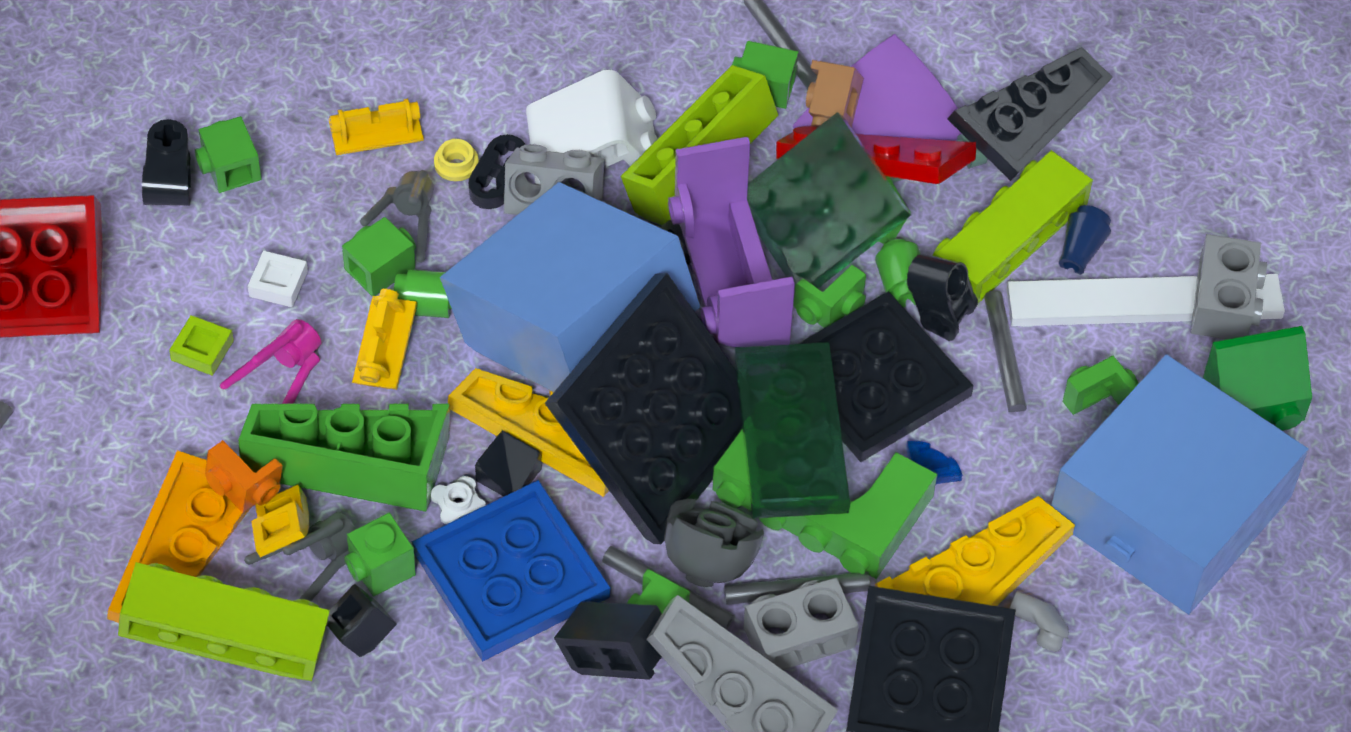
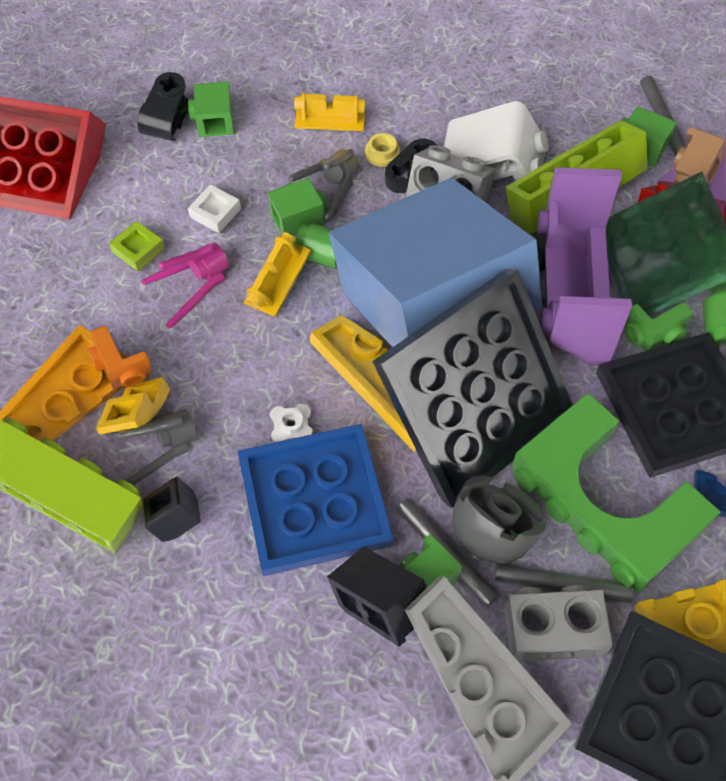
camera: 20 degrees right, 5 degrees up
(351, 451) = (217, 361): bright green wedge -> none
(380, 555) = (205, 456): bright green brick -> none
(507, 465) = (341, 403): black slope -> none
(791, 430) = (595, 440): clear green plate -> none

